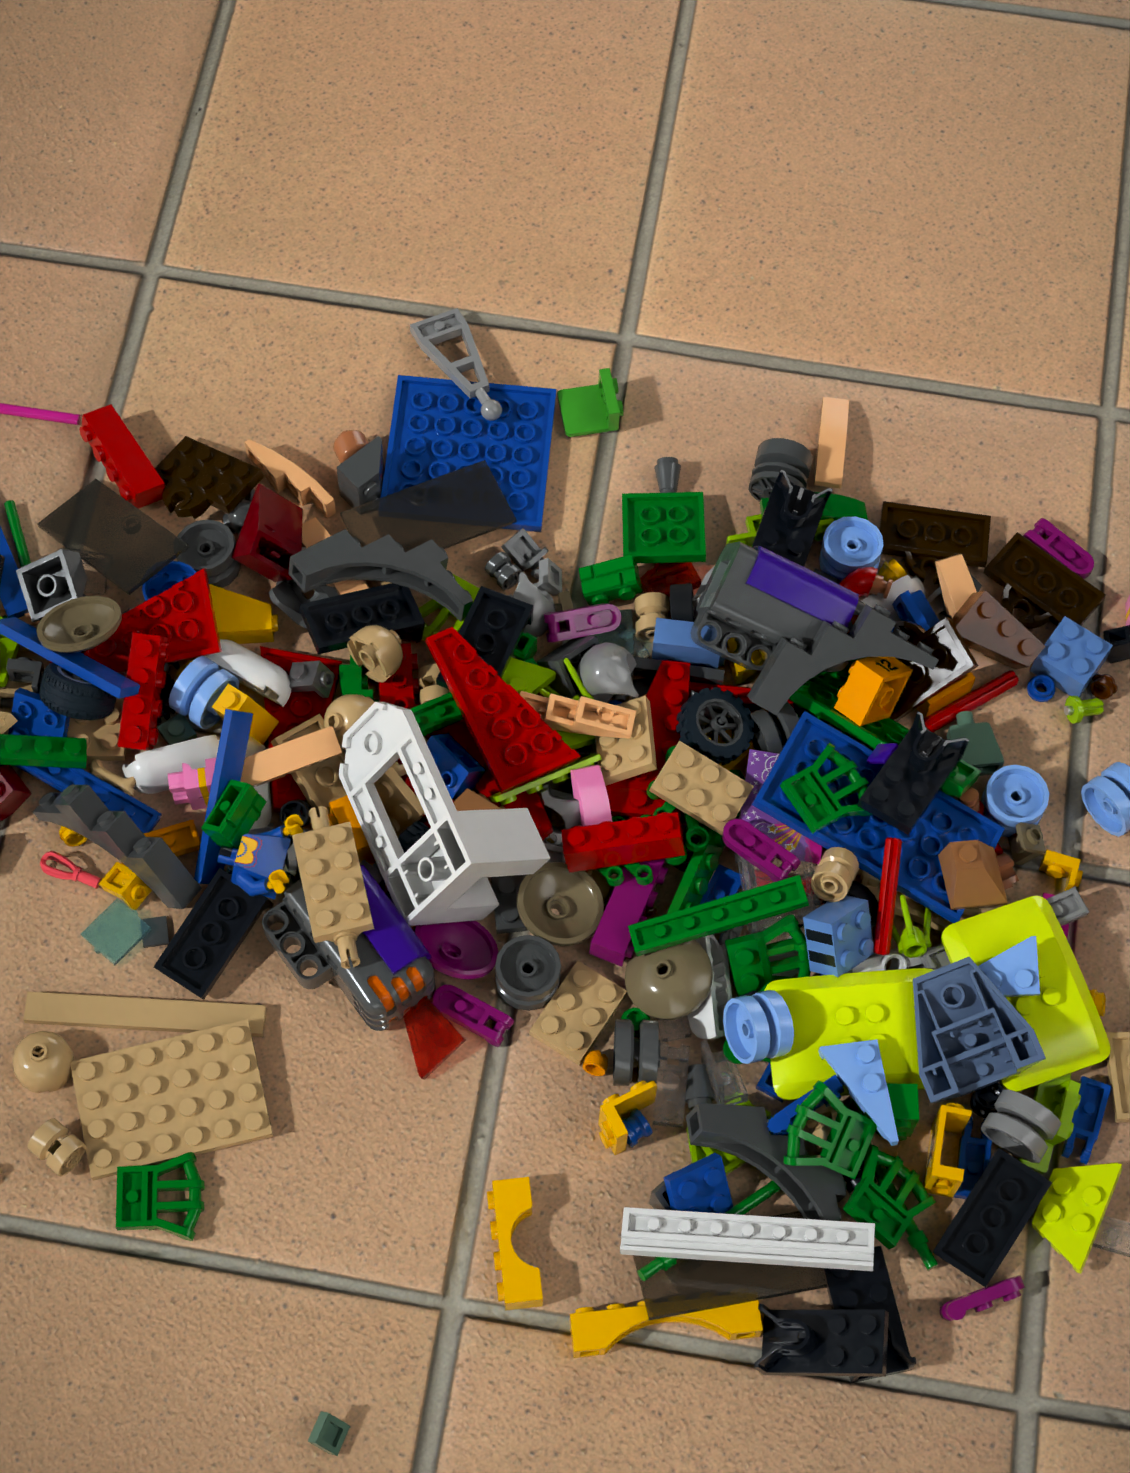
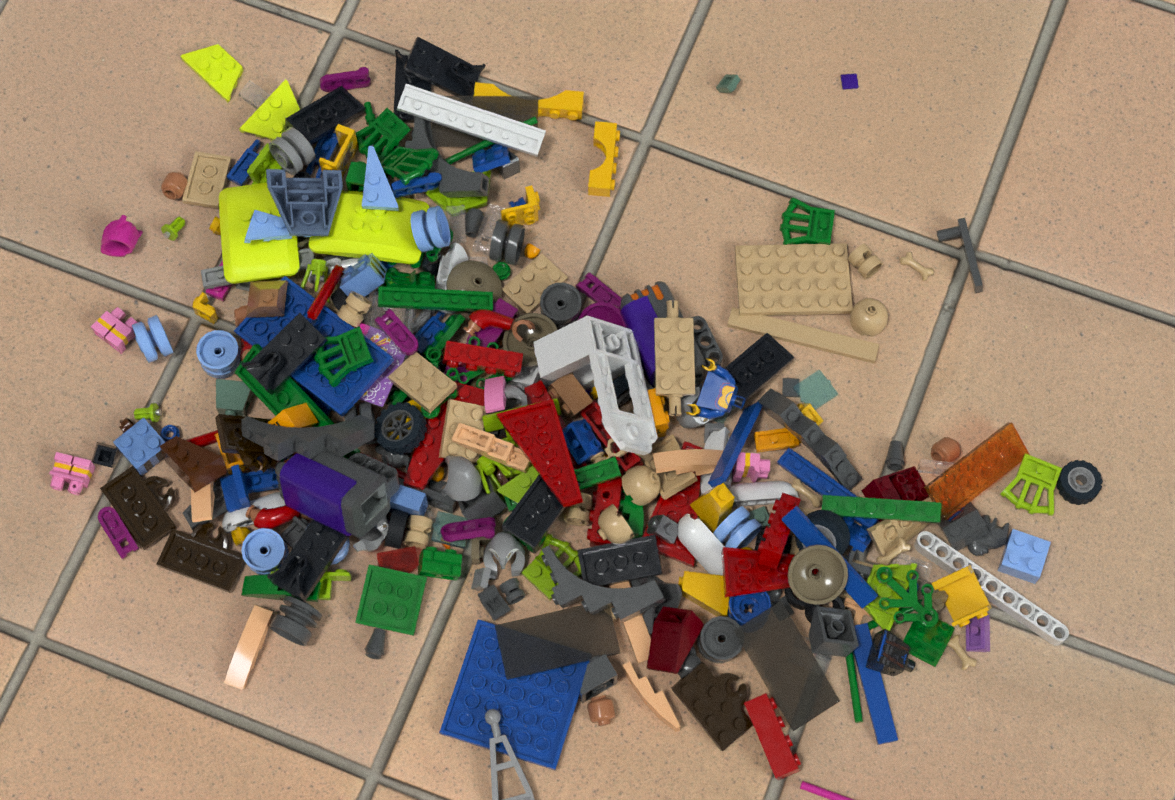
camera: 165 degrees left, 5 degrees up
(77, 874) = (836, 432): coral piece -> none
(234, 814) = (730, 428): green brick -> none
(294, 807) = (688, 434): black wheel -> none
(430, 1036) = (627, 279): clear red wing -> none
(591, 407) = (417, 713): bright green bracket -> none
(628, 910) = (486, 318): none -> red piece
(882, 753) = (298, 376): dark purple piece -> none
(1026, 843) = (221, 322): dark tan bracket -> none

